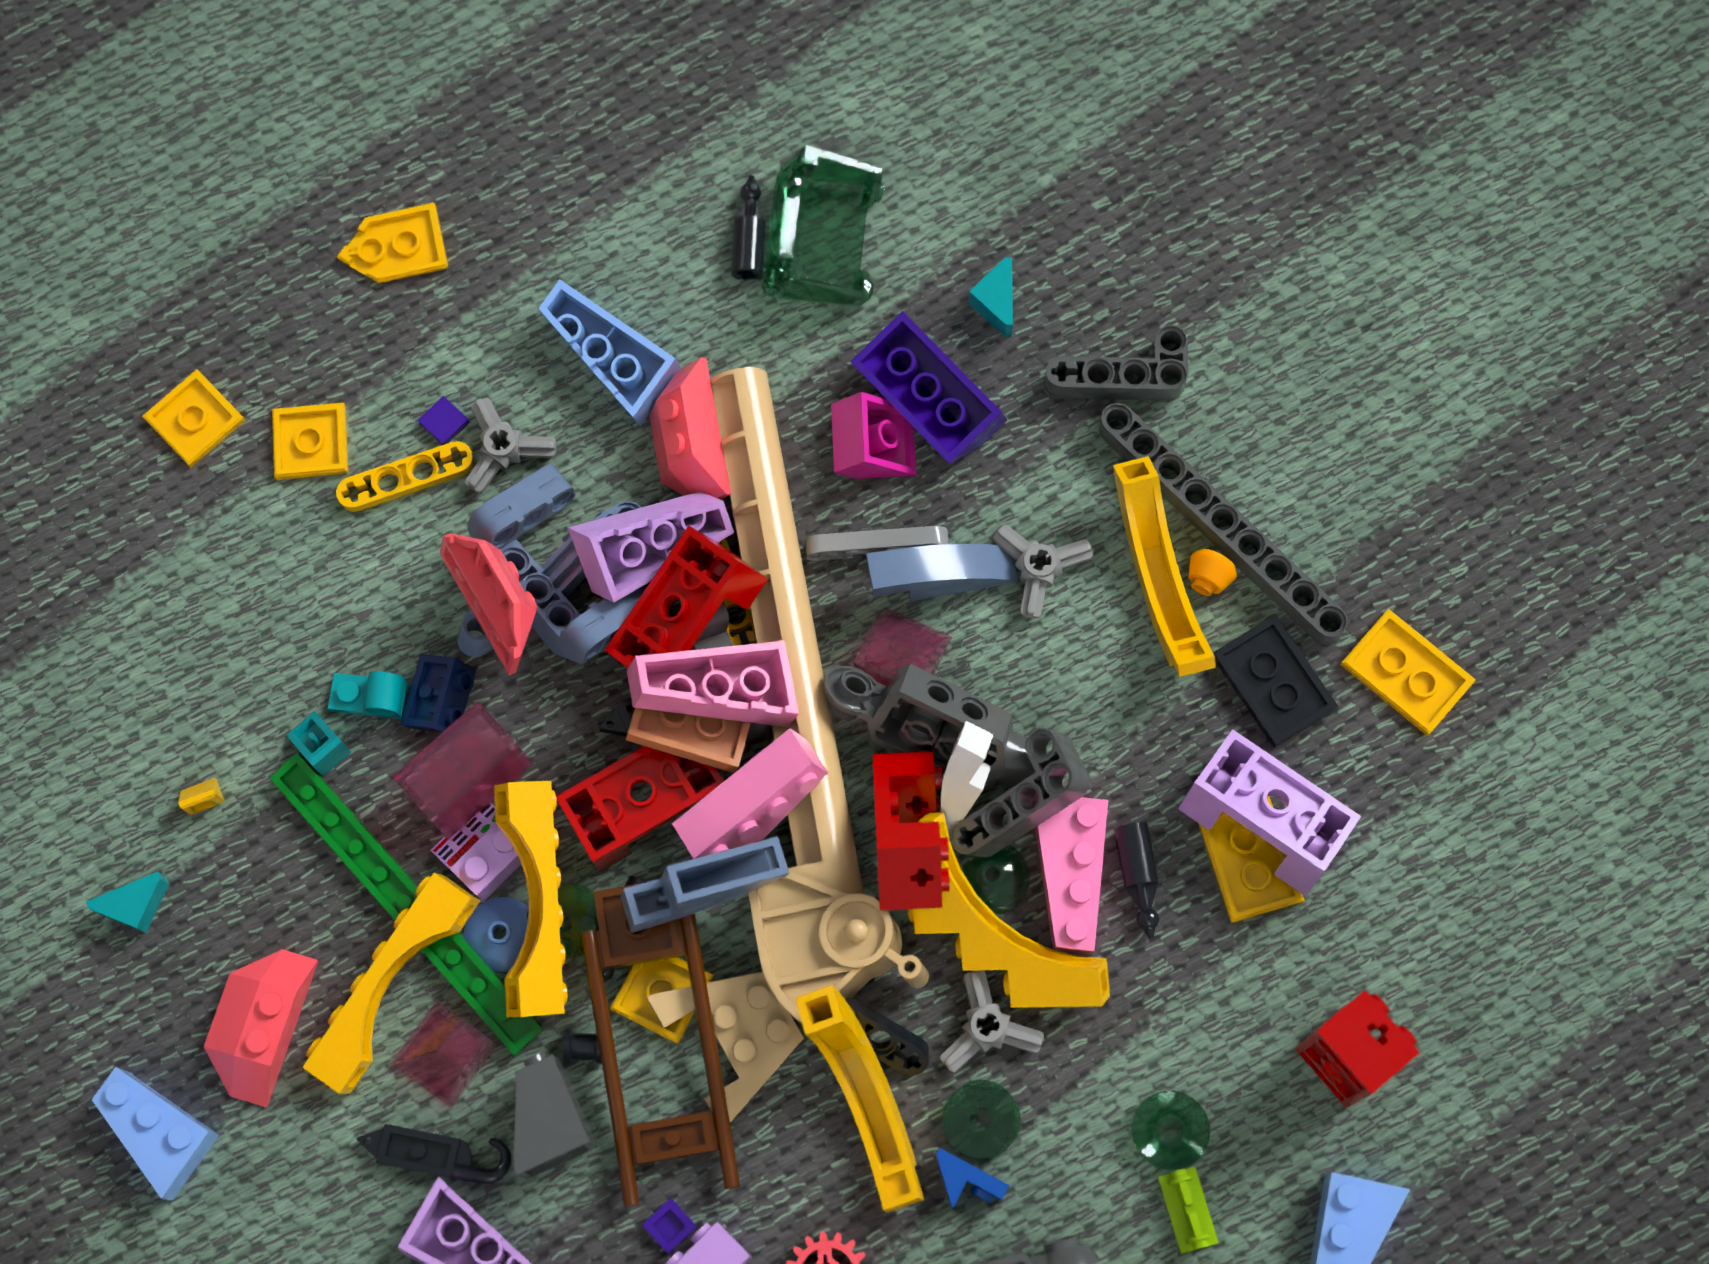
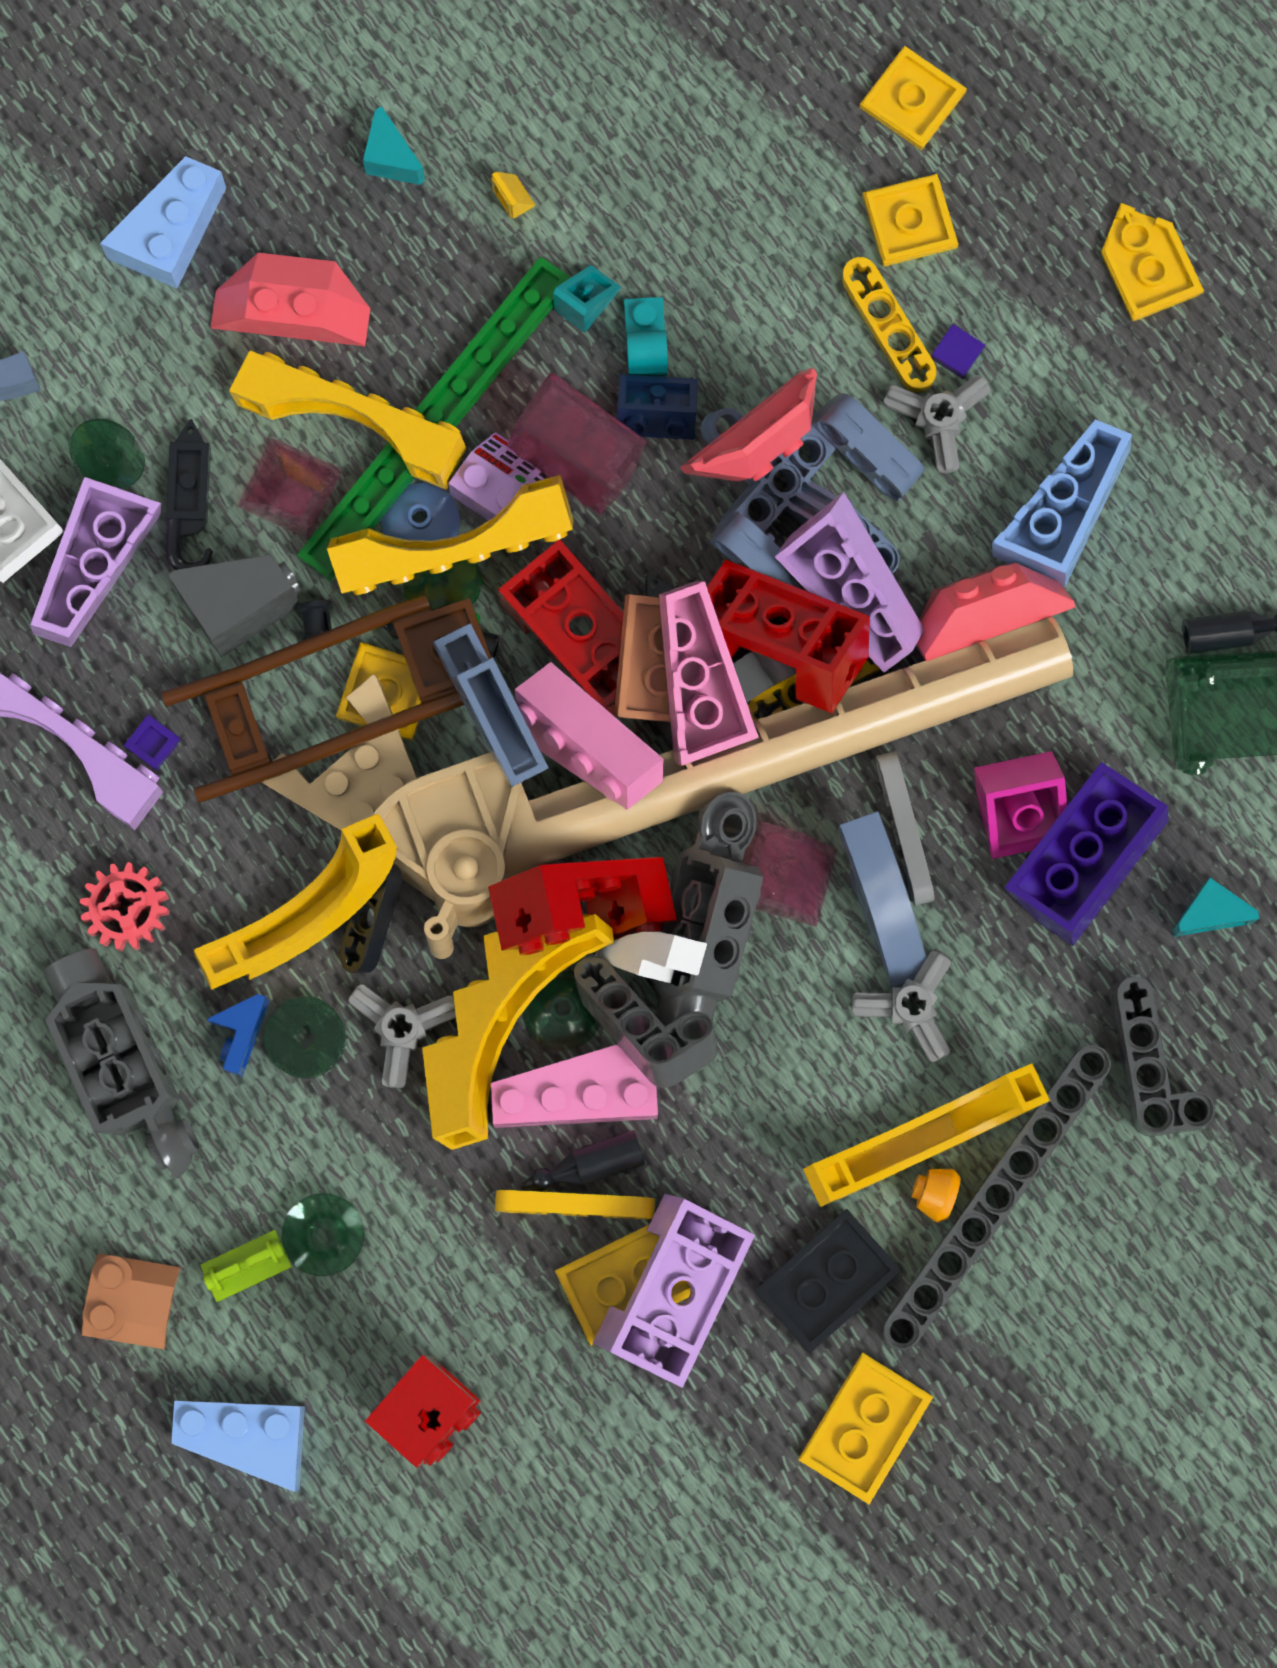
camera: 75 degrees right, 5 degrees up
(362, 1221) = (108, 441): none -> clear green dish
(1175, 893) = (574, 1204): none -> yellow beam

